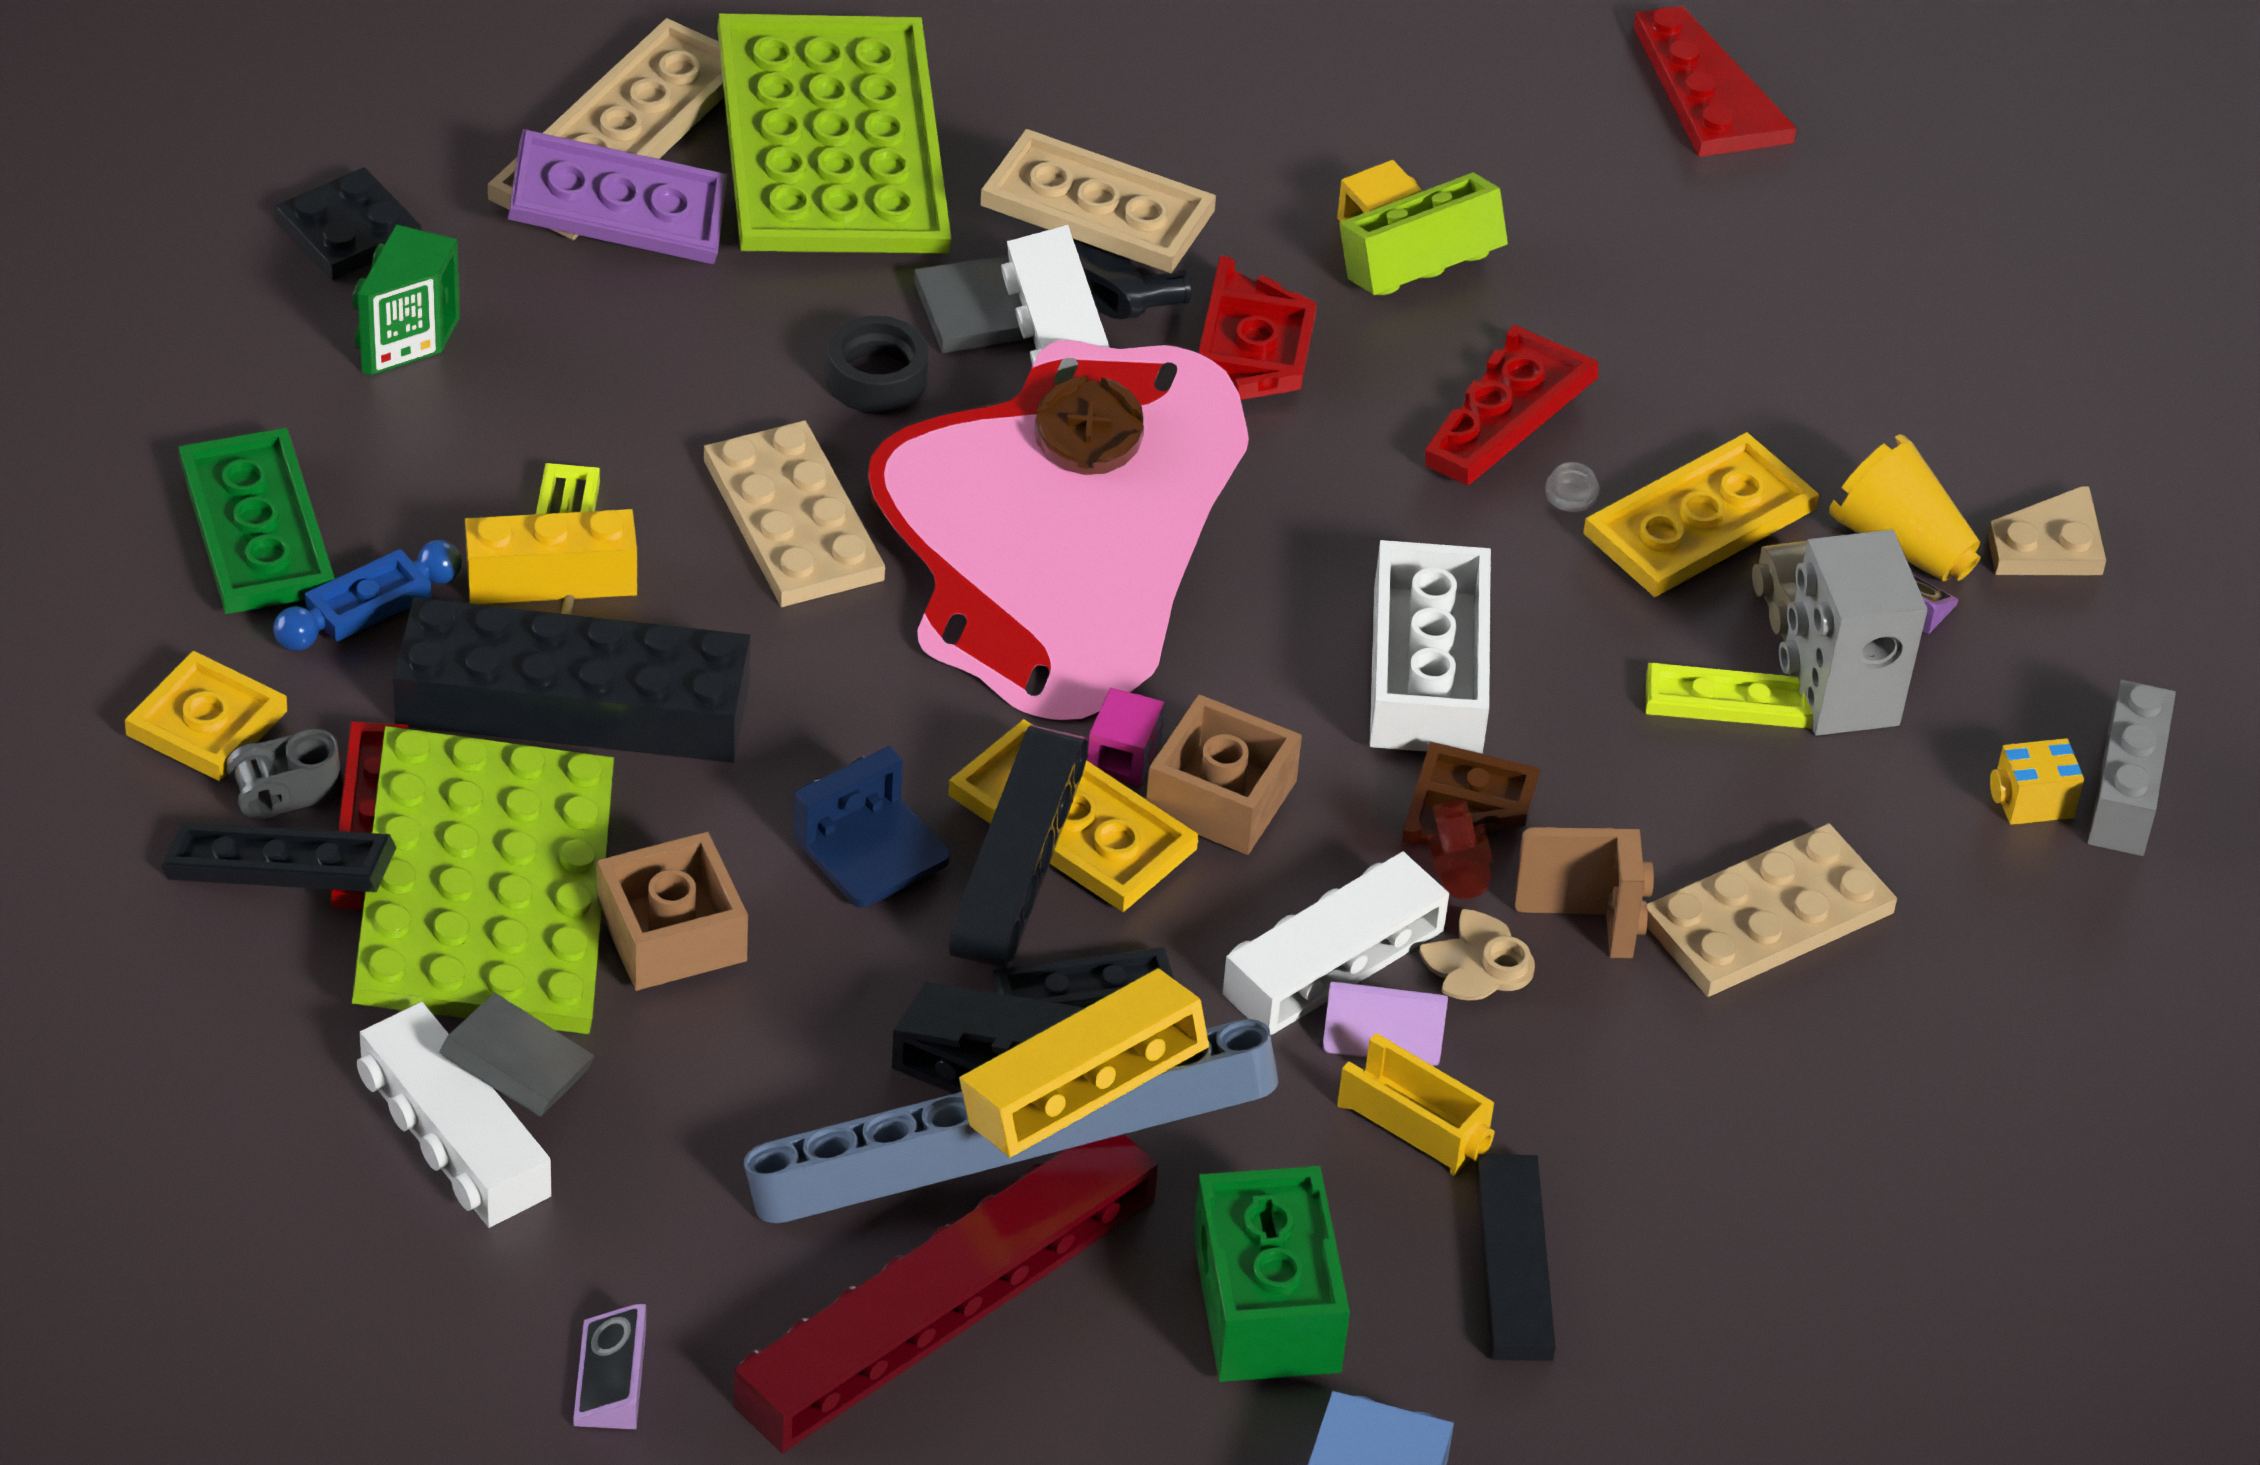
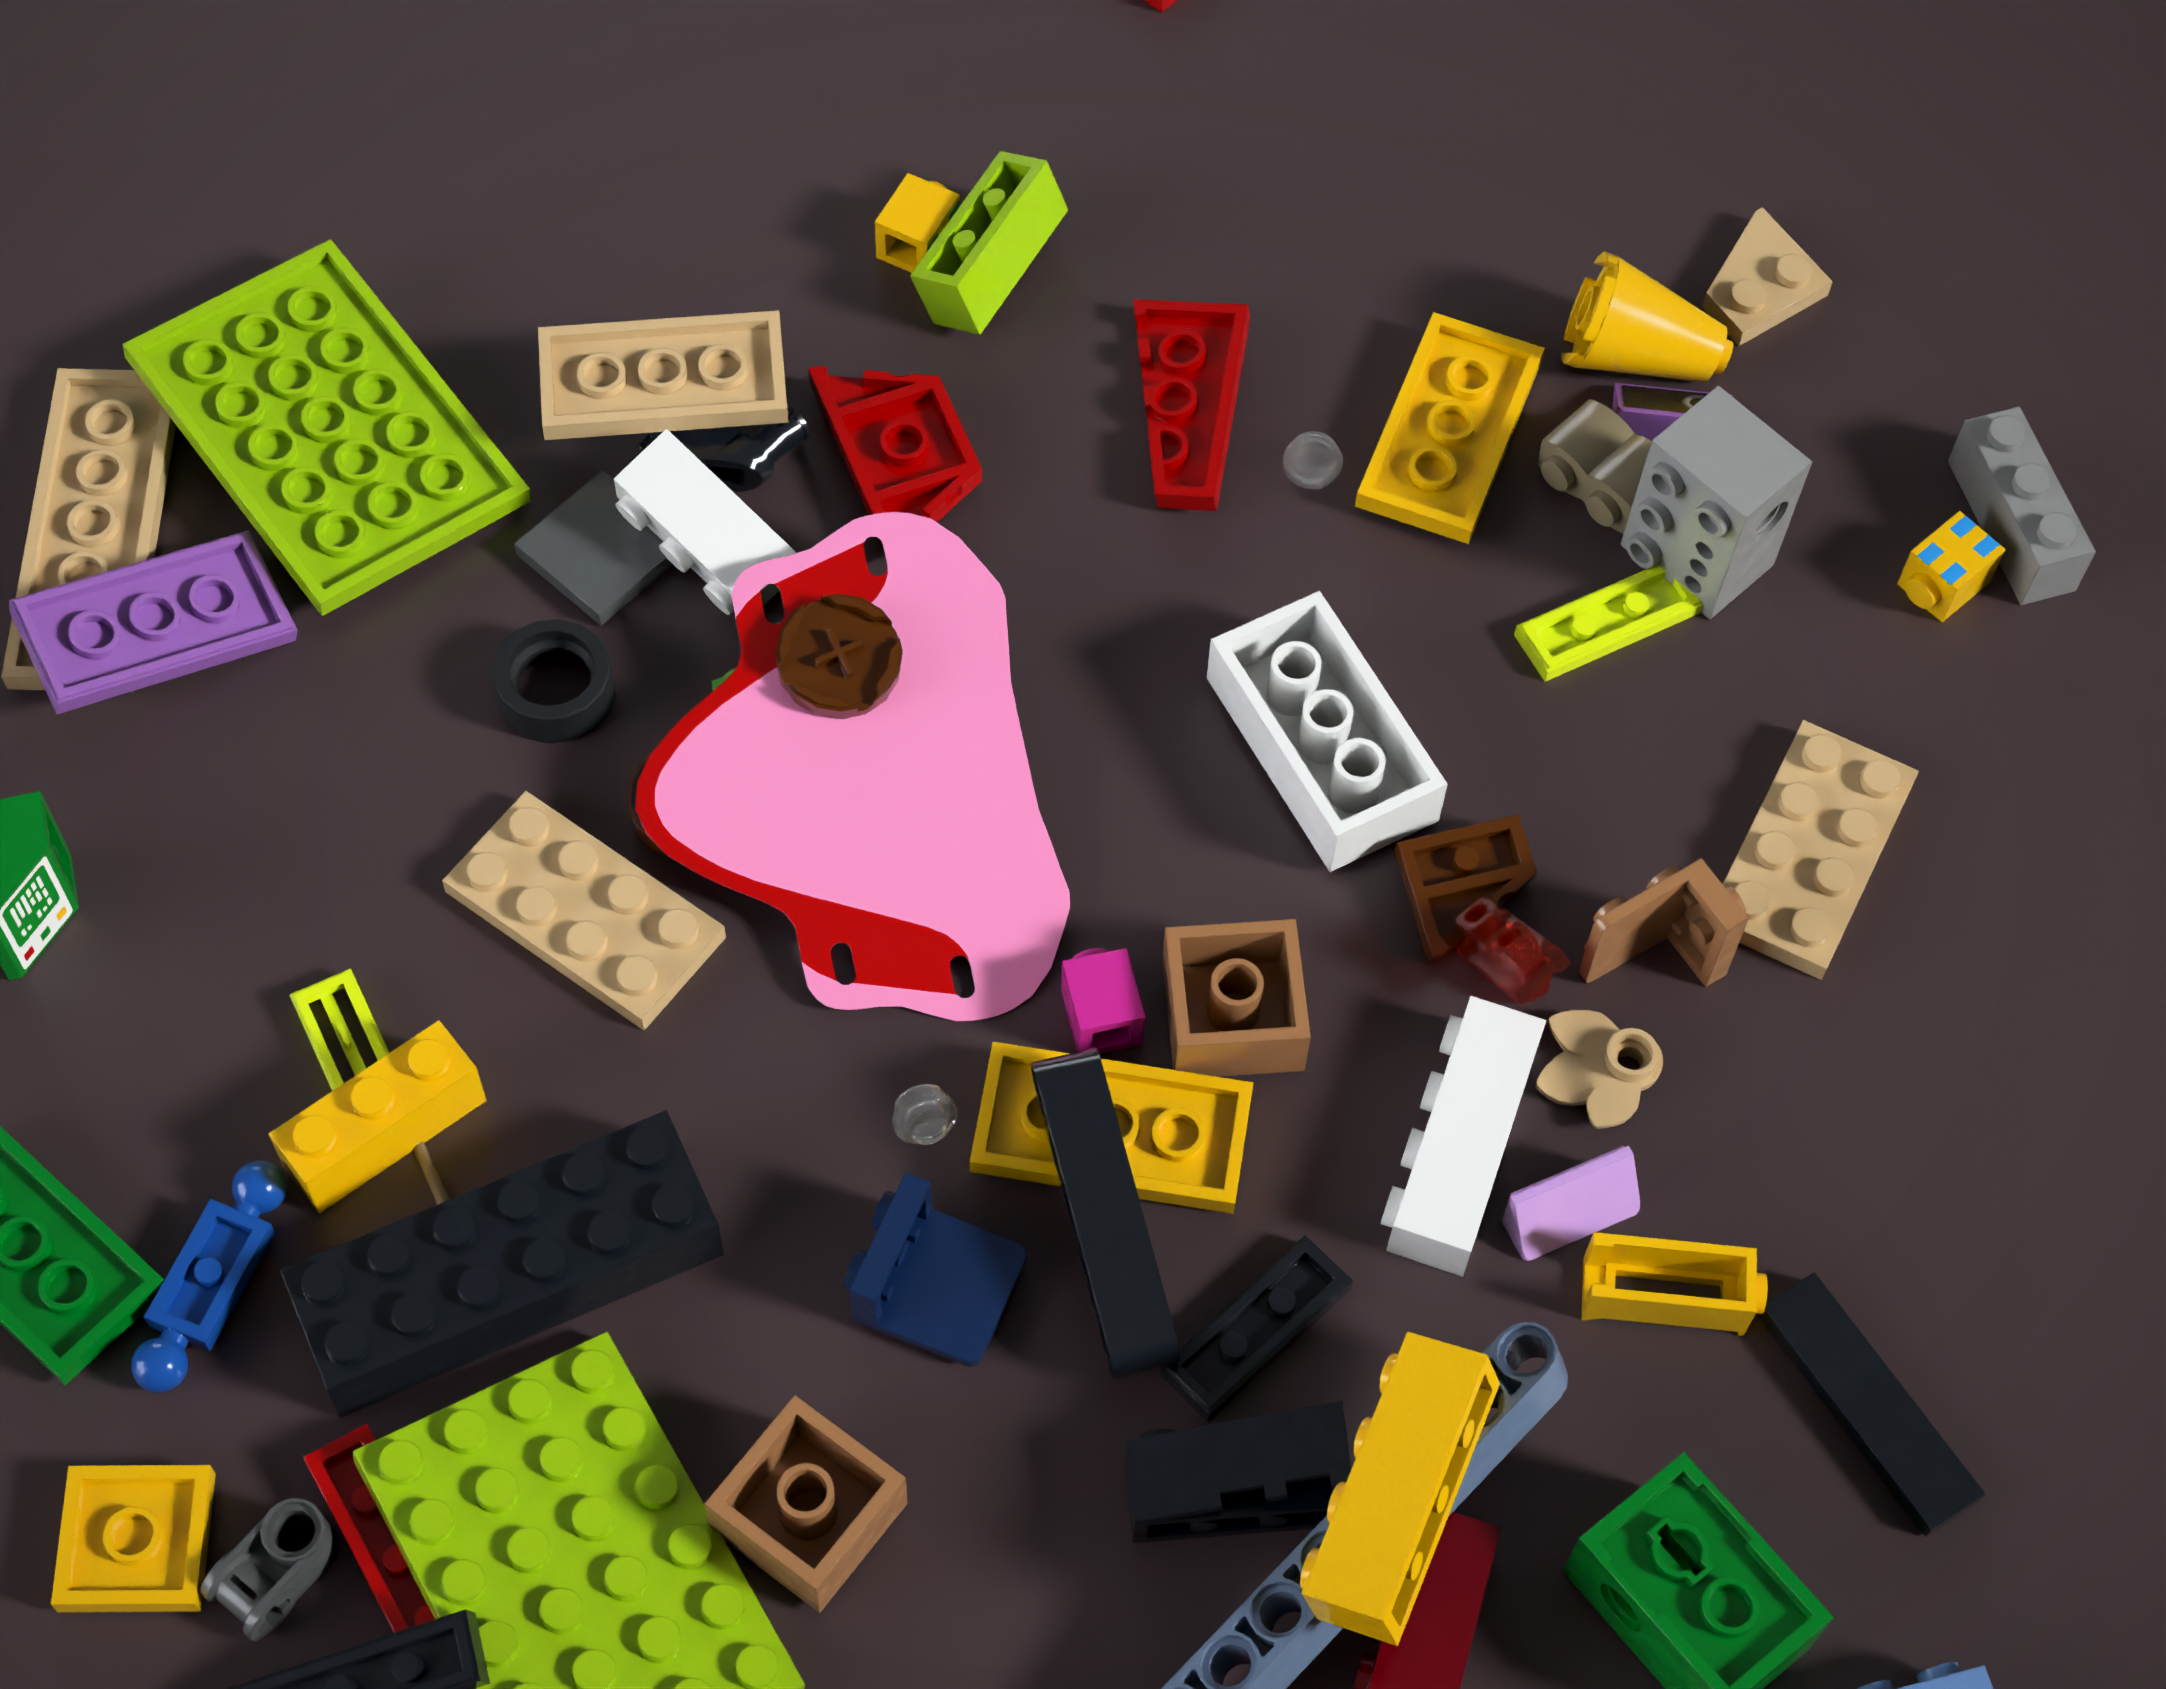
camera: 30 degrees left, 15 degrees up
(939, 742) = (924, 1115): none -> clear plate

